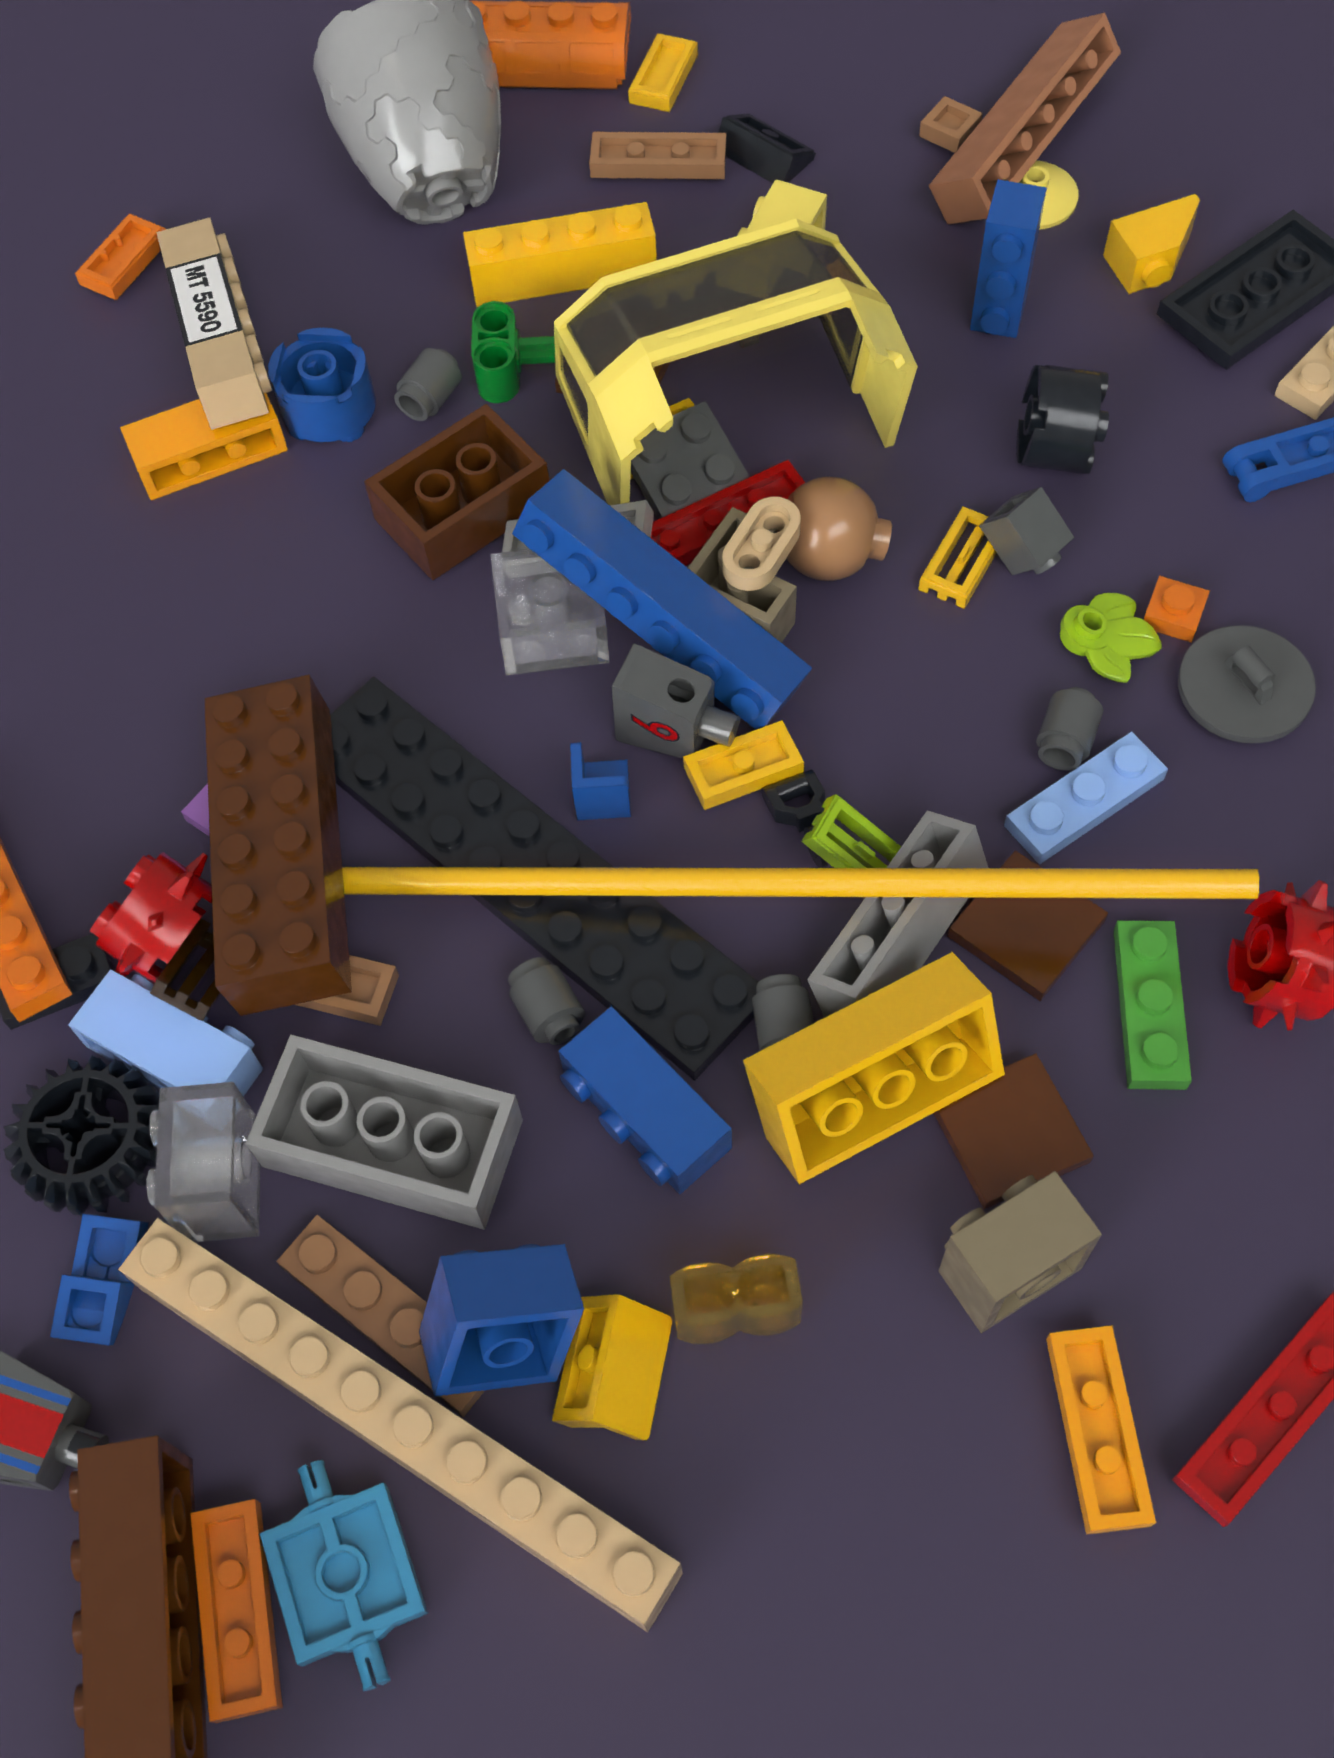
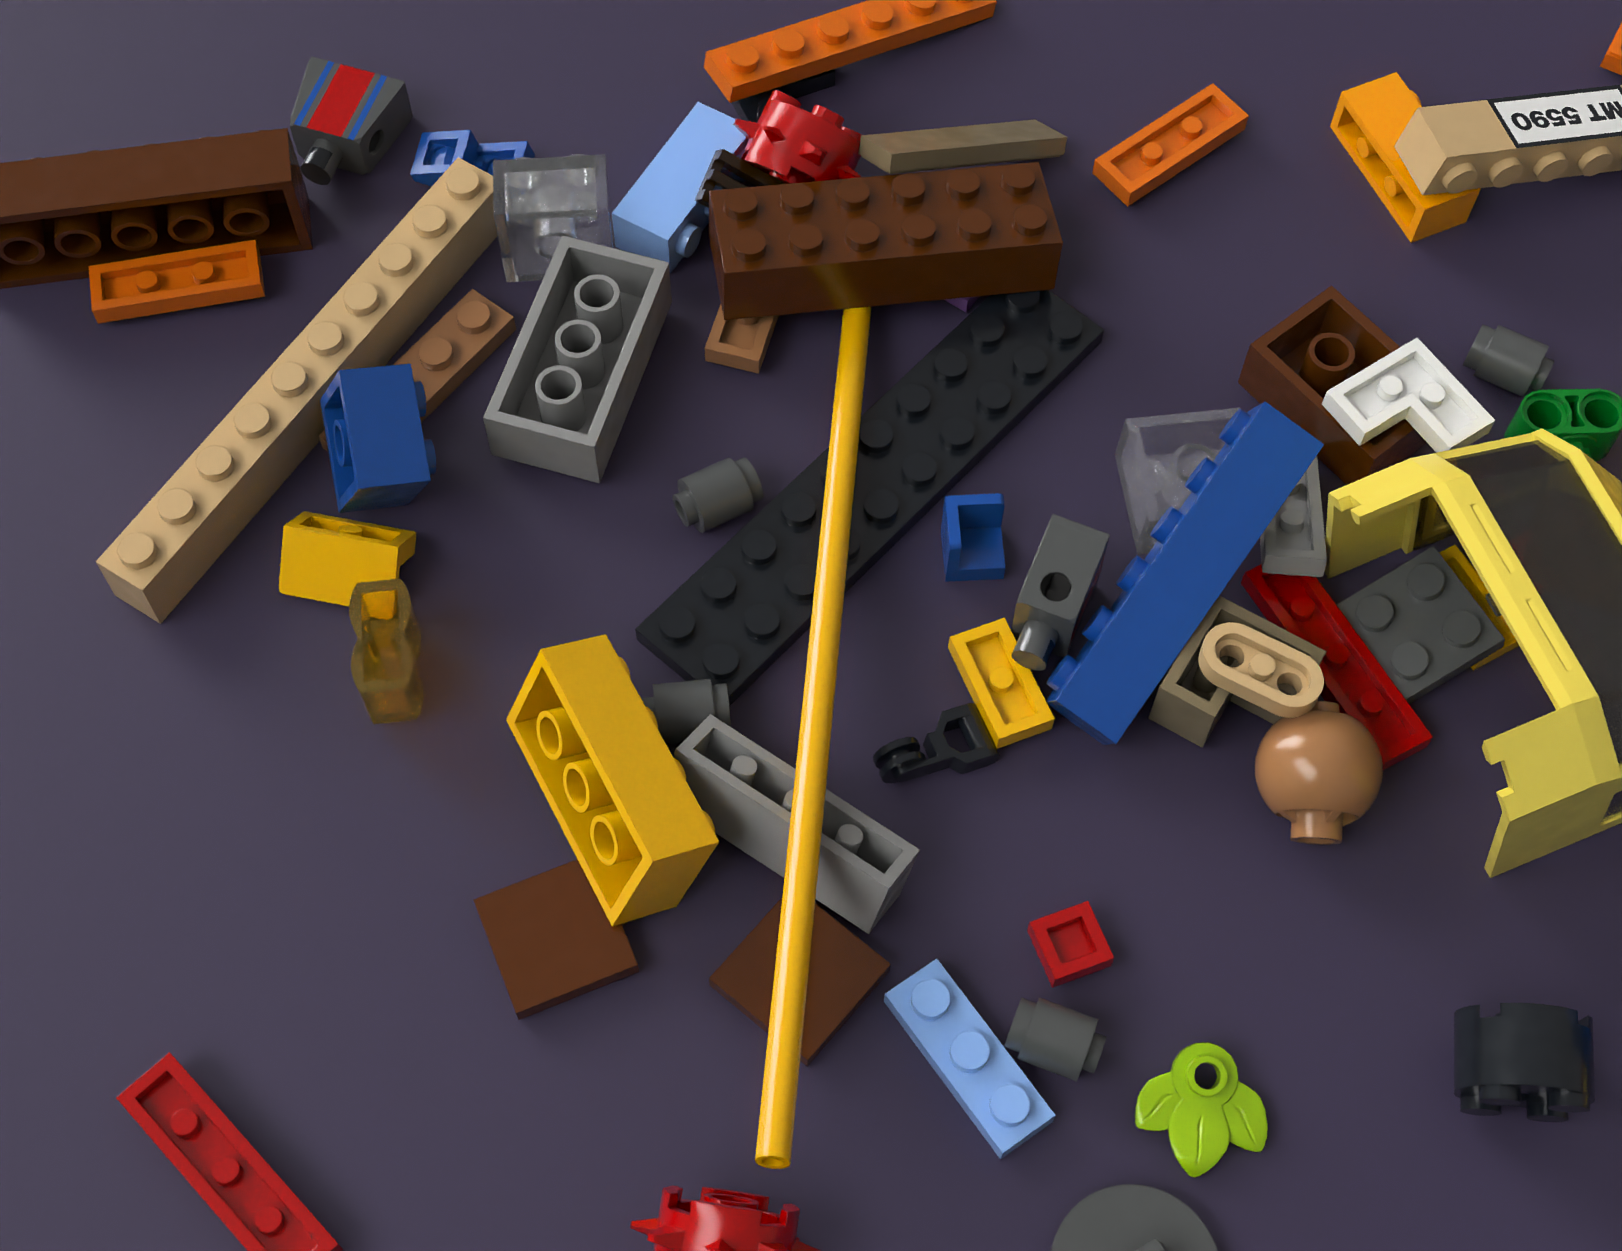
camera: 85 degrees right, 0 degrees up
(64, 1118) = (601, 119): black gear -> none
(163, 776) = (961, 146): none -> dark tan tile
(165, 617) = (1170, 144): none -> orange plate
(322, 386) = (1483, 253): blue brick -> none
(343, 1574) = (192, 355): dark azure plate -> none
(489, 426) = (1413, 388): none -> white plate
(644, 1101) = (606, 576): blue brick -> none
(839, 847) = (904, 743): lime tile -> none
(948, 586) = (1303, 965): yellow tile -> none
(984, 717) = (1070, 944): none -> red plate
(1017, 1249) = (404, 903): dark tan brick -> none
(1027, 532) = (1337, 1007): dark grey brick -> none
(1100, 1430) = (229, 988): light orange plate -> none
(1151, 1005) = (679, 1101): bright green plate -> none
(1176, 608) = (1250, 1199): orange plate -> none

